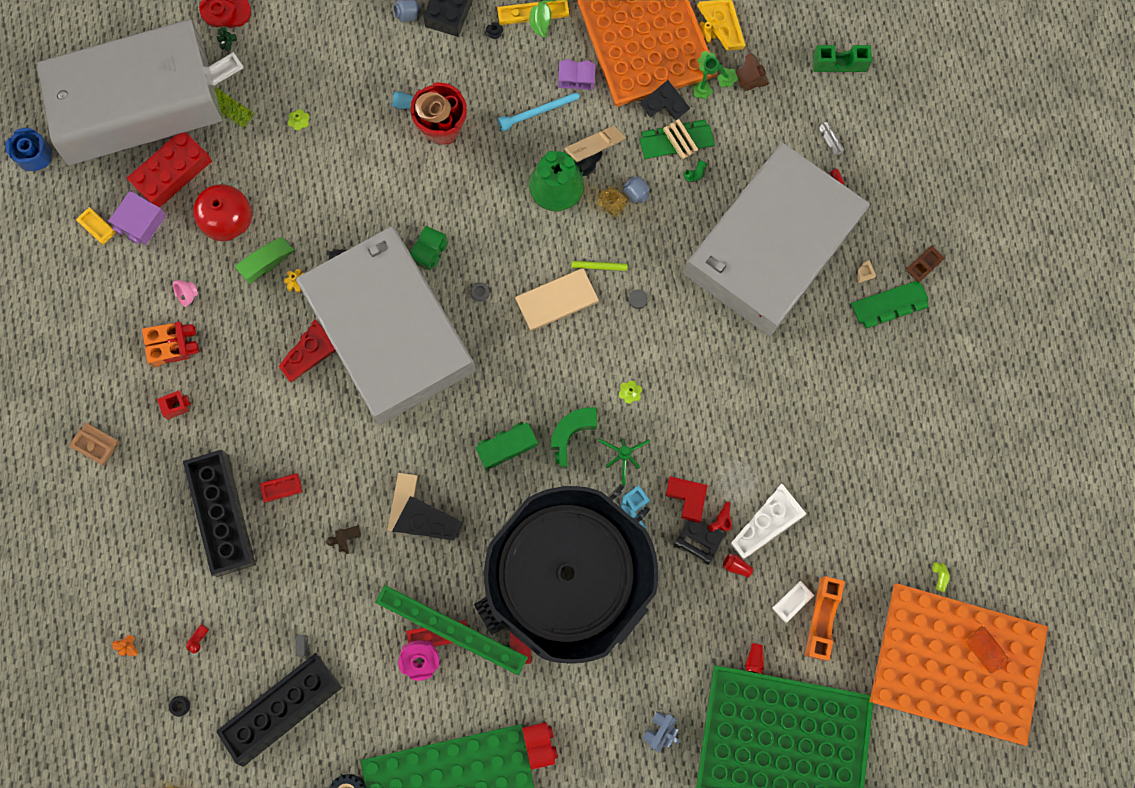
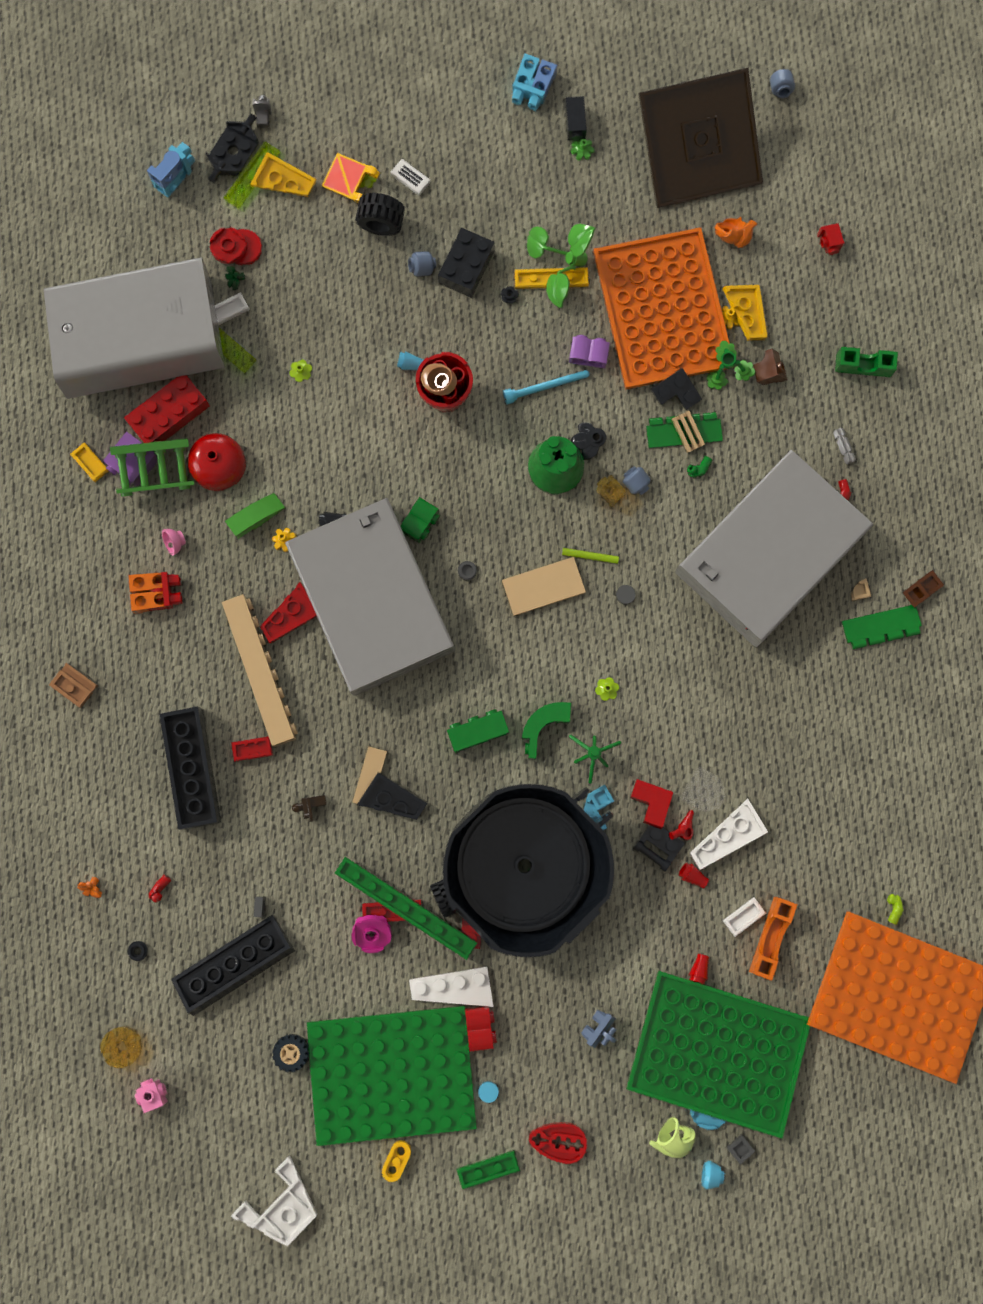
camera: 10 degrees right, 5 degrees up
(29, 149) = (28, 377): blue brick -> none
(144, 206) = (159, 449): none -> bright green fence
(168, 401) = (147, 654): red brick -> none
(281, 410) = (258, 669): none -> tan brick
(510, 706) = (457, 987): none -> white wing
(595, 143) = (600, 429): tan piece -> none
(987, 650) = (930, 987): clear orange slope -> none

